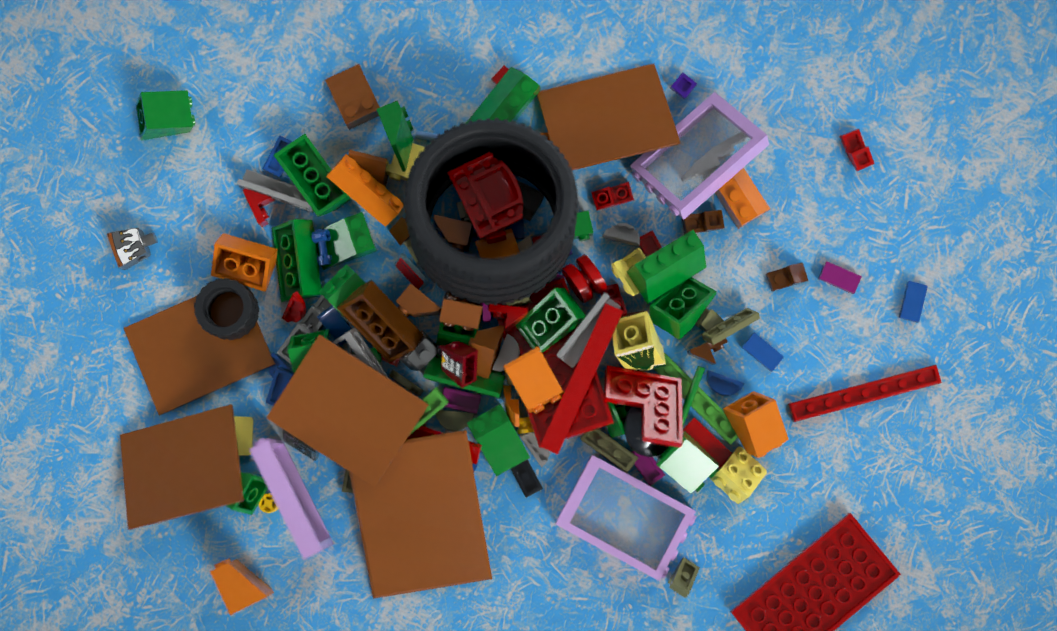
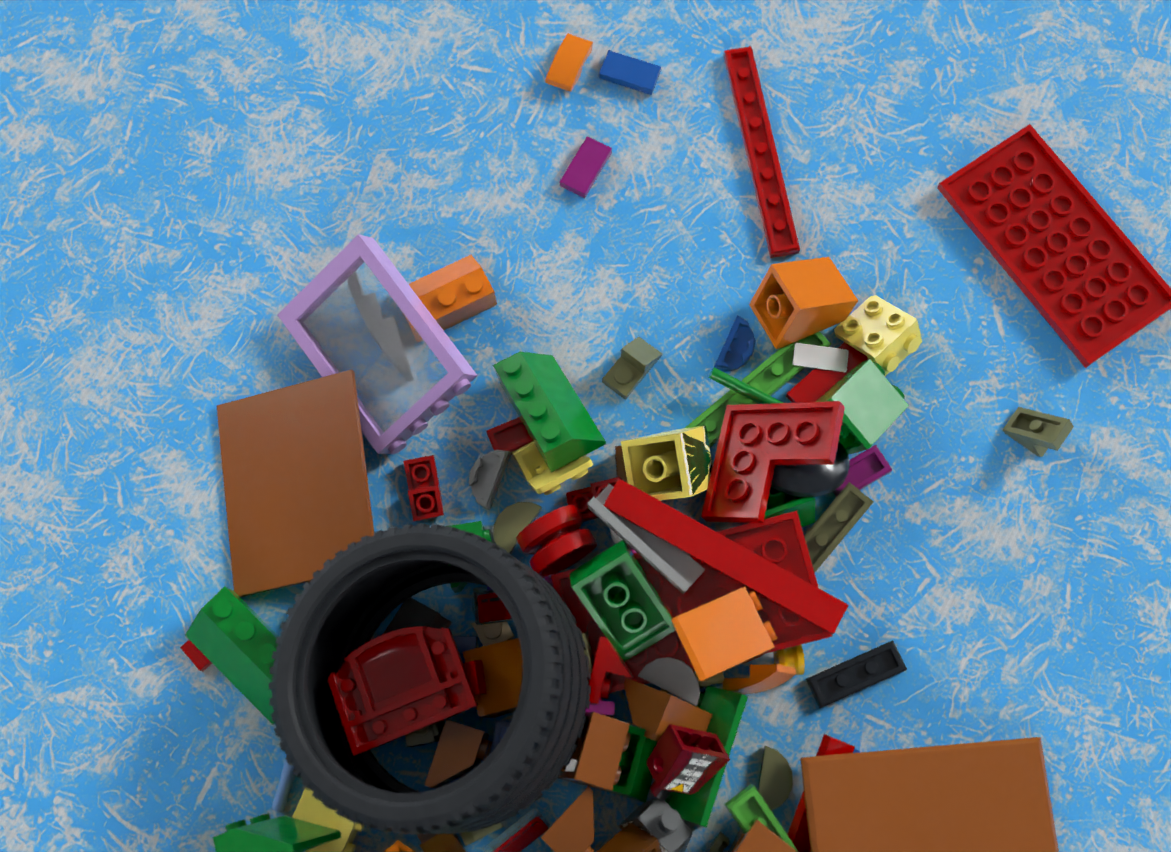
camera: 80 degrees left, 10 degrees down
(462, 400) = (742, 766): magenta tile -> none
(498, 440) = (812, 706): green slope -> none
(540, 454) = (820, 650): light grey tile -> none
(595, 251) = (512, 521): none -> olive tile
(626, 518) = (942, 512): clear window -> none
(681, 307) = (614, 394): green slope -> none
(683, 86) = (260, 363): dark purple plate -> none
(703, 222) = (481, 352): reddish brown slope -> none
(704, 352) = (683, 368): reddish brown slope -> none
(720, 437) = (820, 357): none -> white sticker
(730, 326) = (649, 325): olive tile -> none
(762, 352) = (690, 285): blue tile -> none
(787, 276) = (578, 240): reddish brown slope -> none
(856, 150) = (395, 127): red slope -> none
(915, 259) = (568, 62): none -> orange slope

